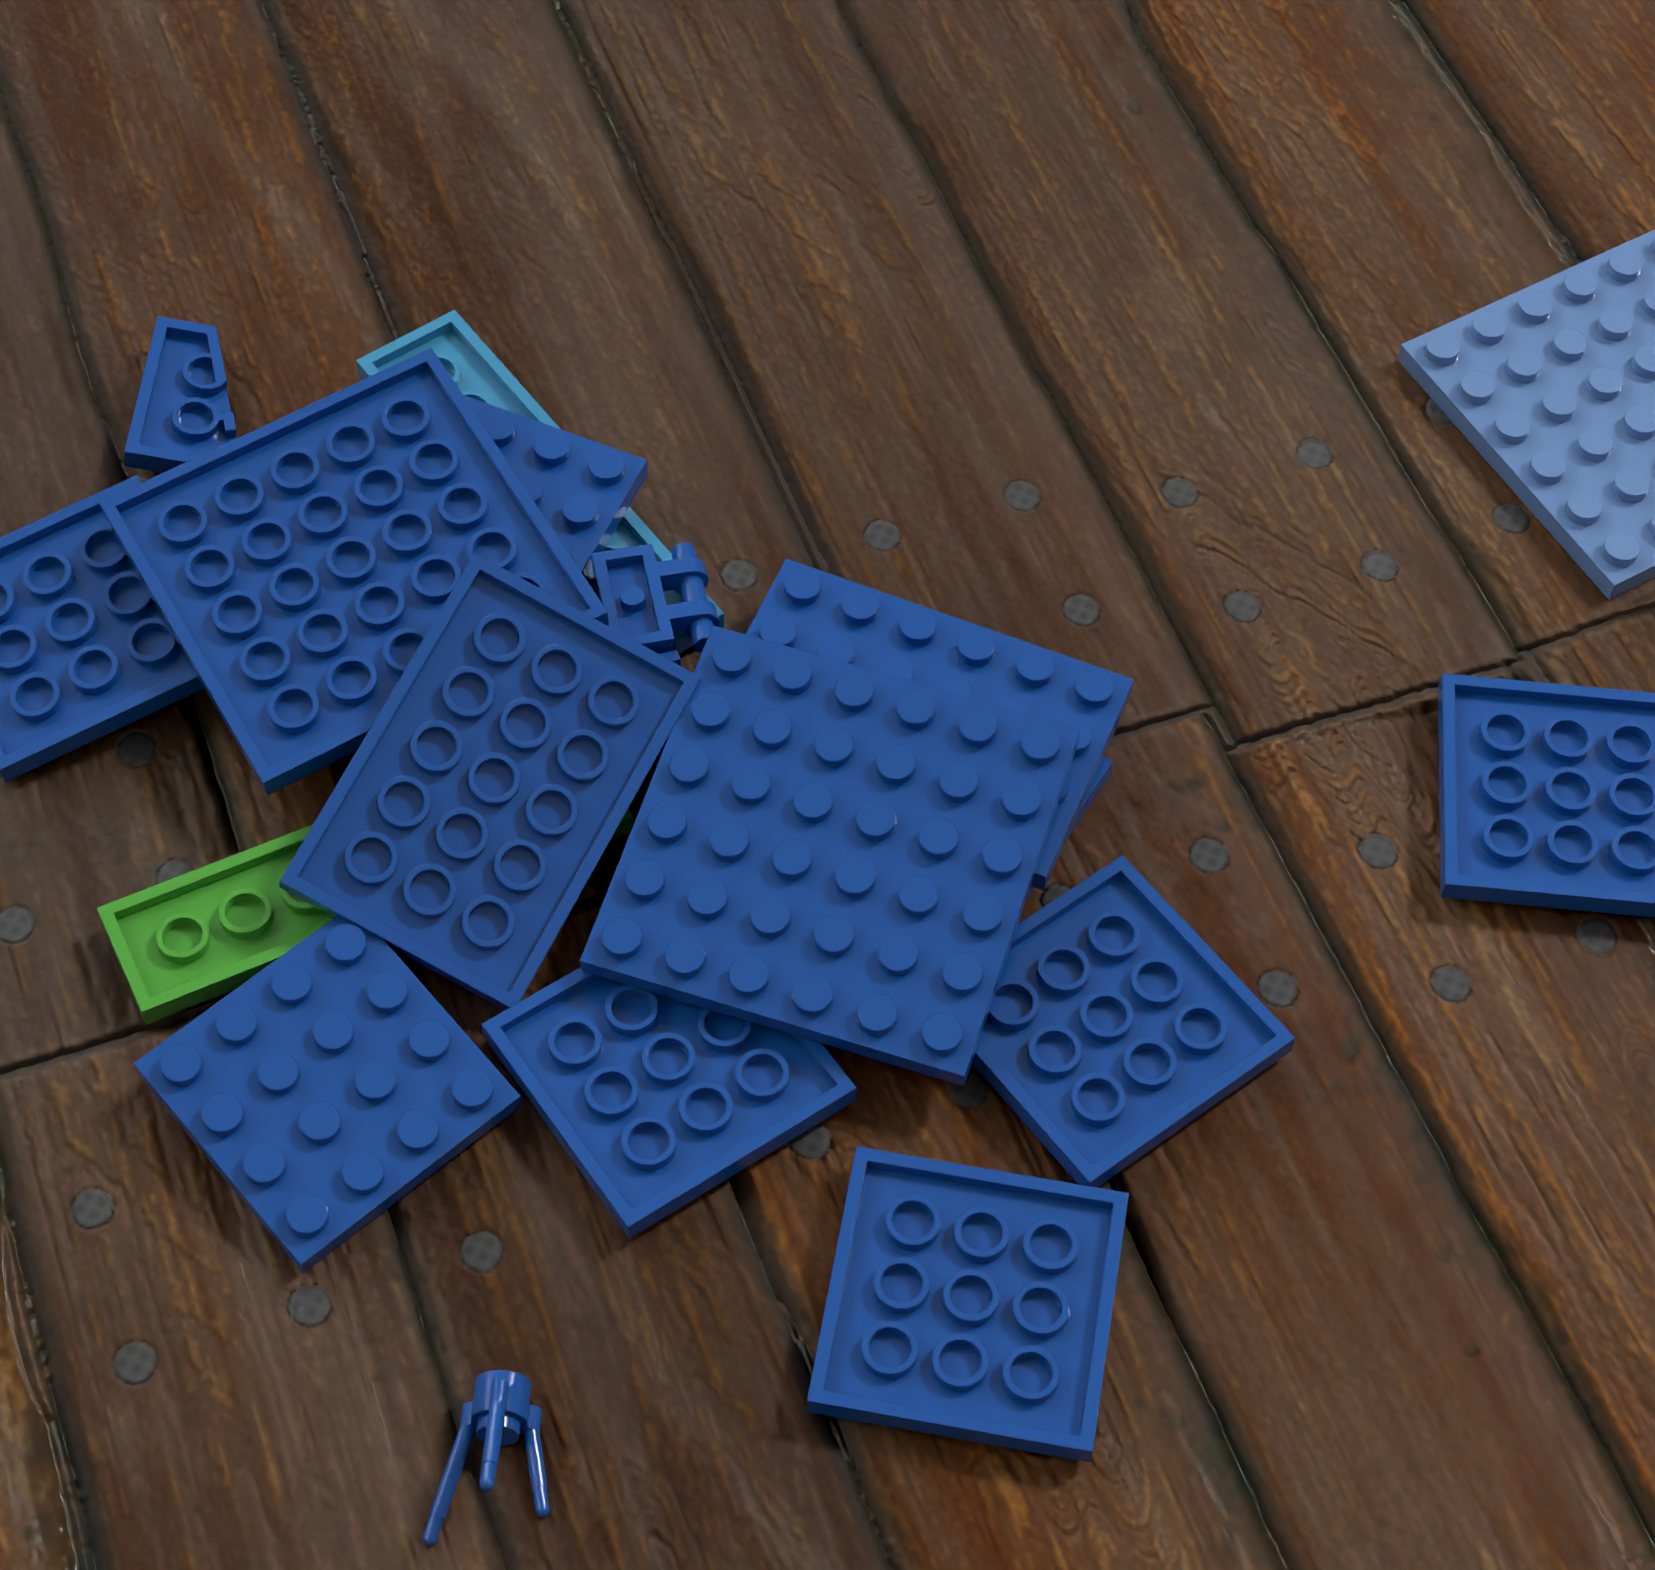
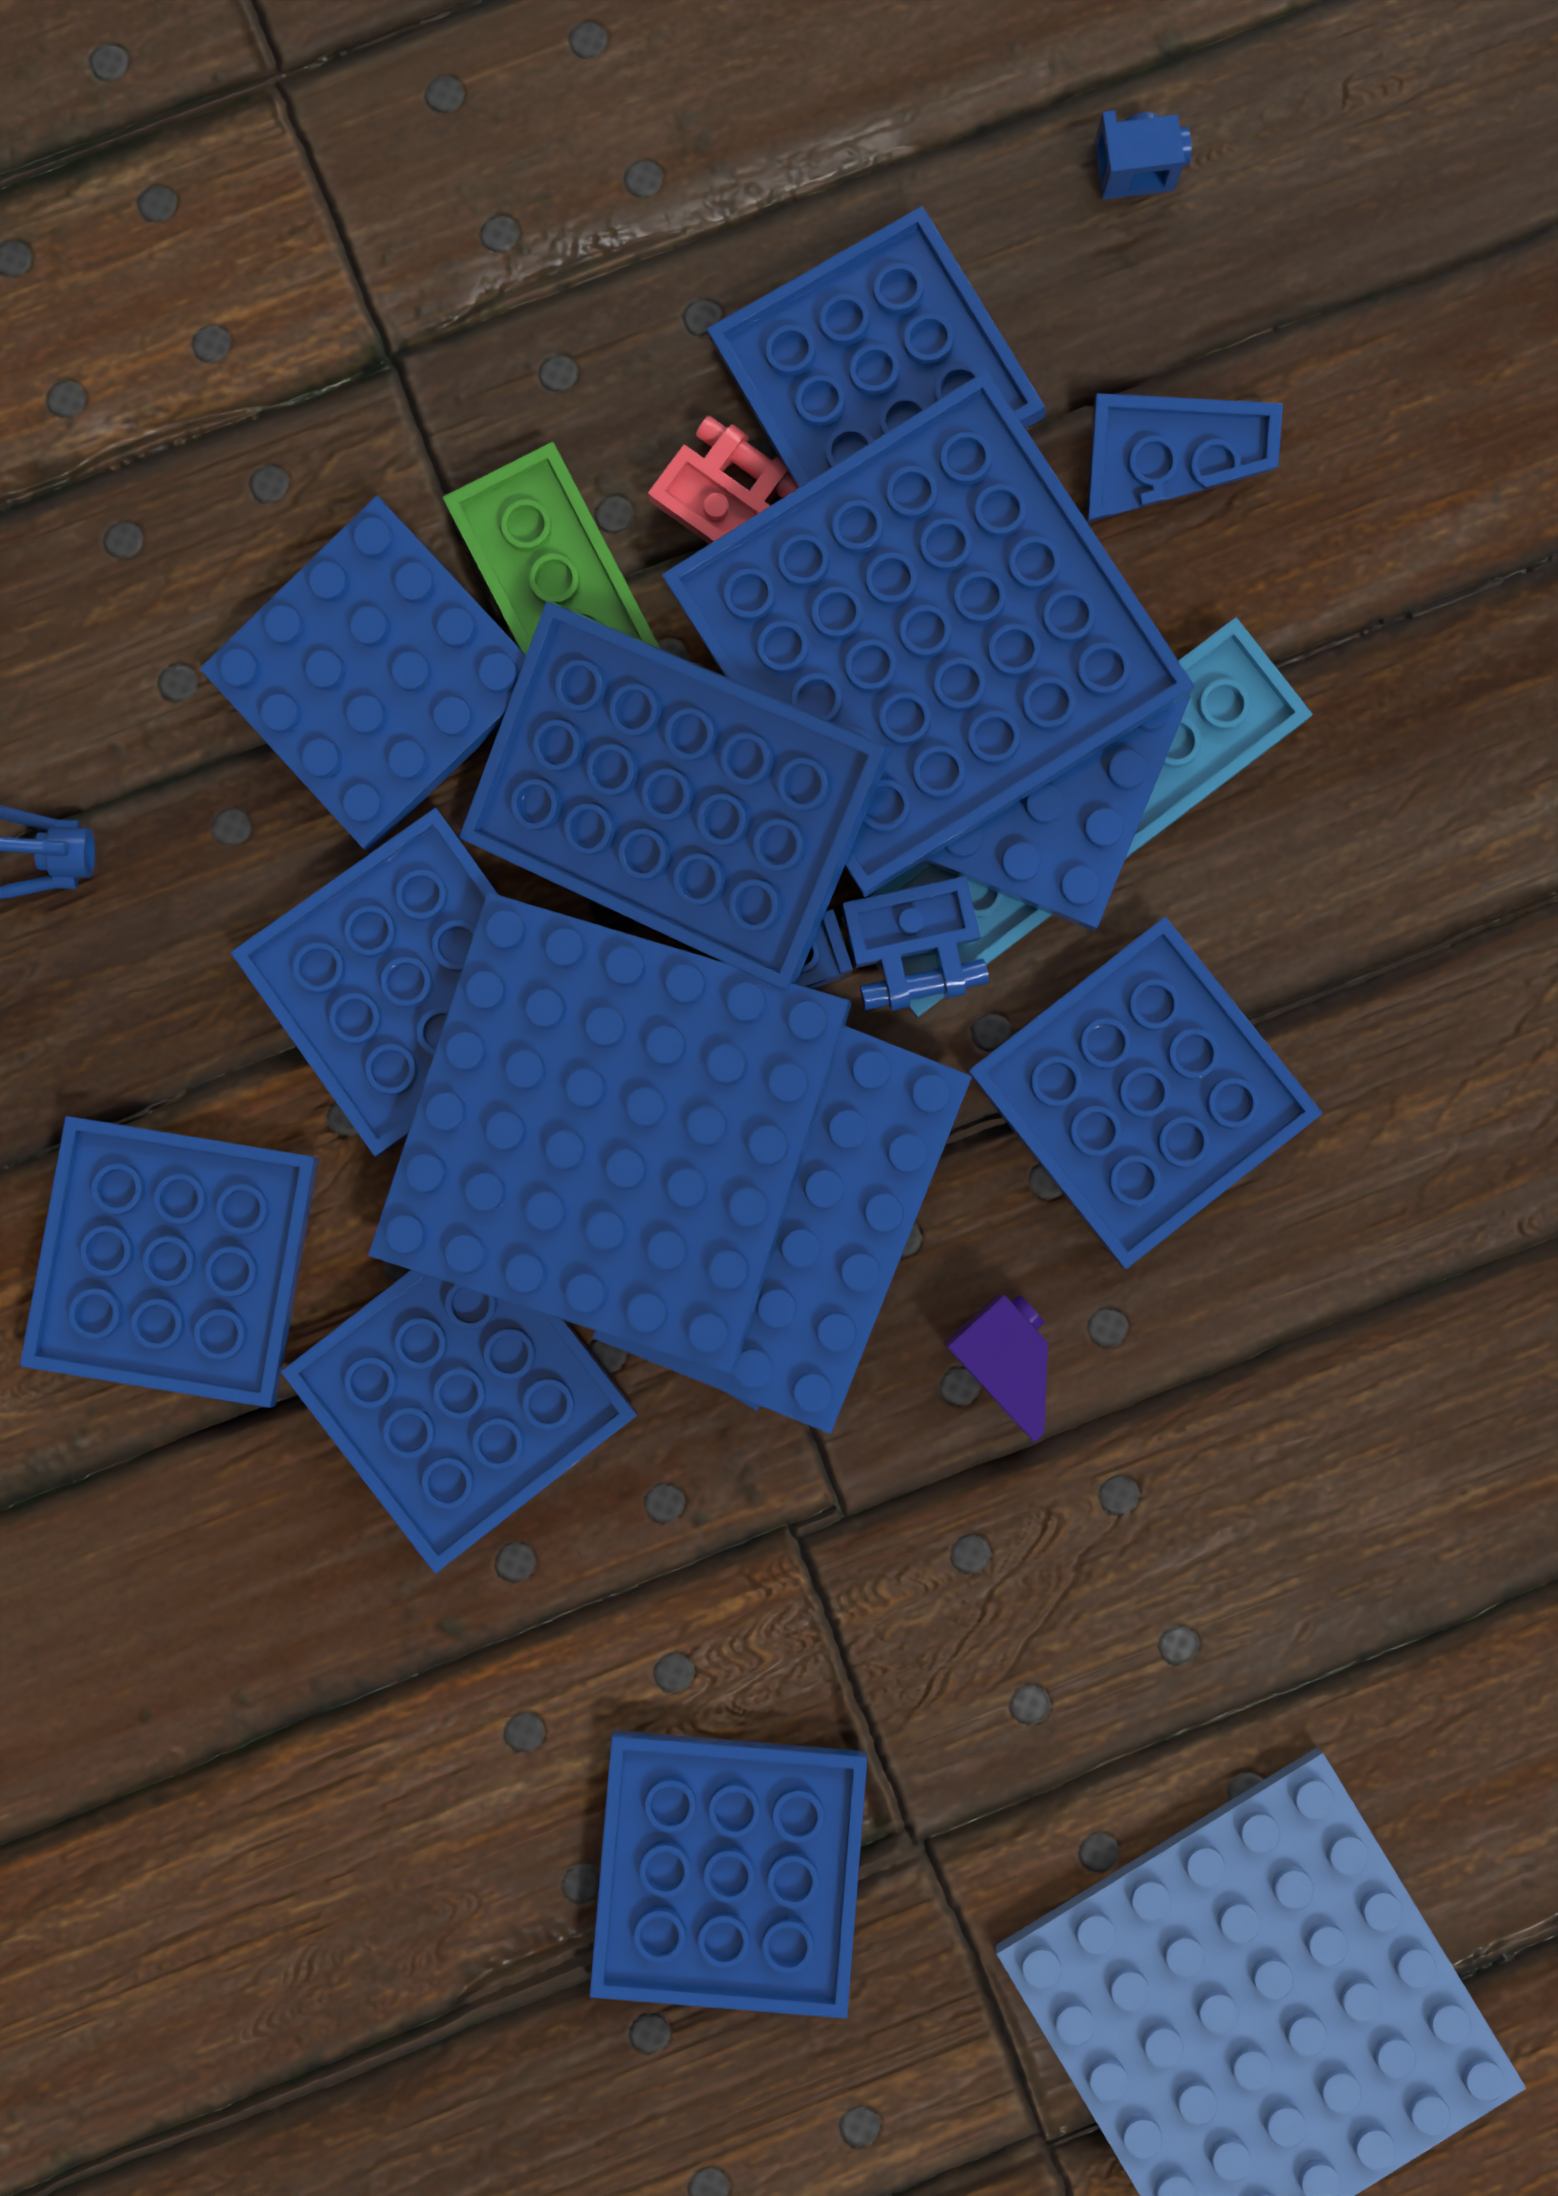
camera: 90 degrees right, 30 degrees up
(182, 776) = (706, 498): none -> coral plate
(802, 450) = (1144, 1093): none -> blue plate
(1058, 556) = (1007, 1359): none -> dark purple slope

